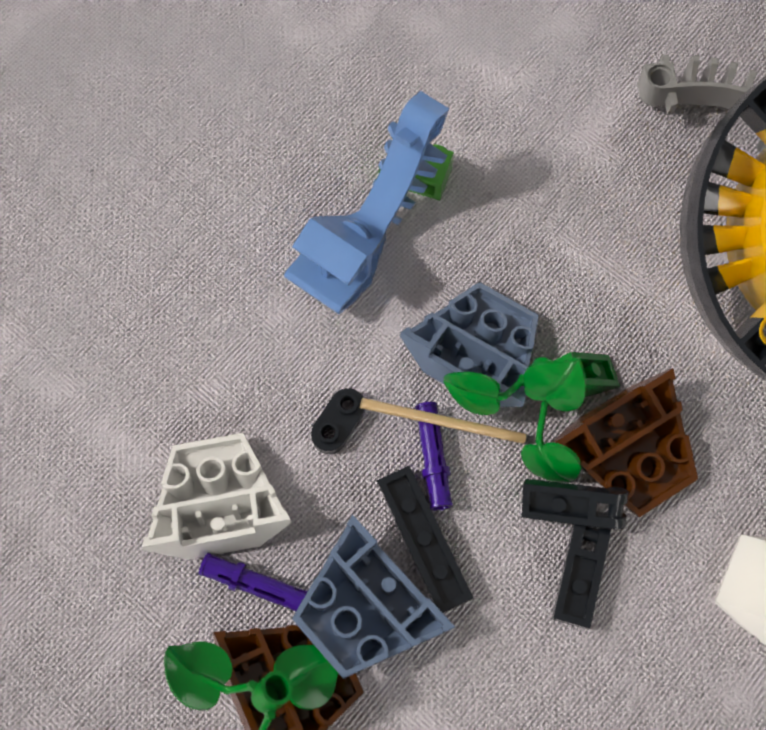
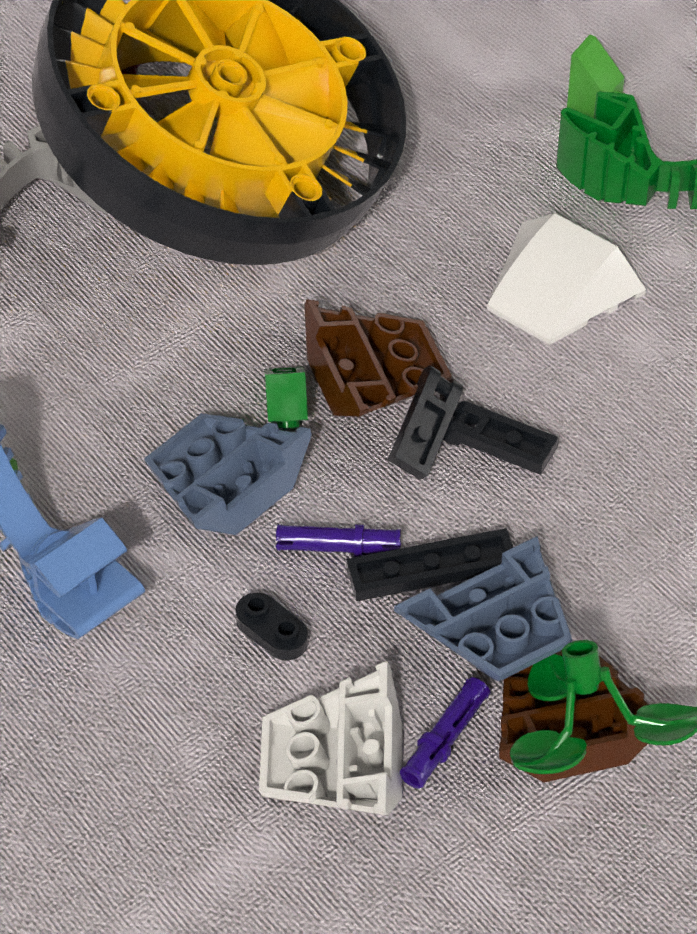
camera: 80 degrees left, 20 degrees down
(441, 420) = (302, 518): tan axle -> none
(552, 382) = (318, 361): green plant -> none

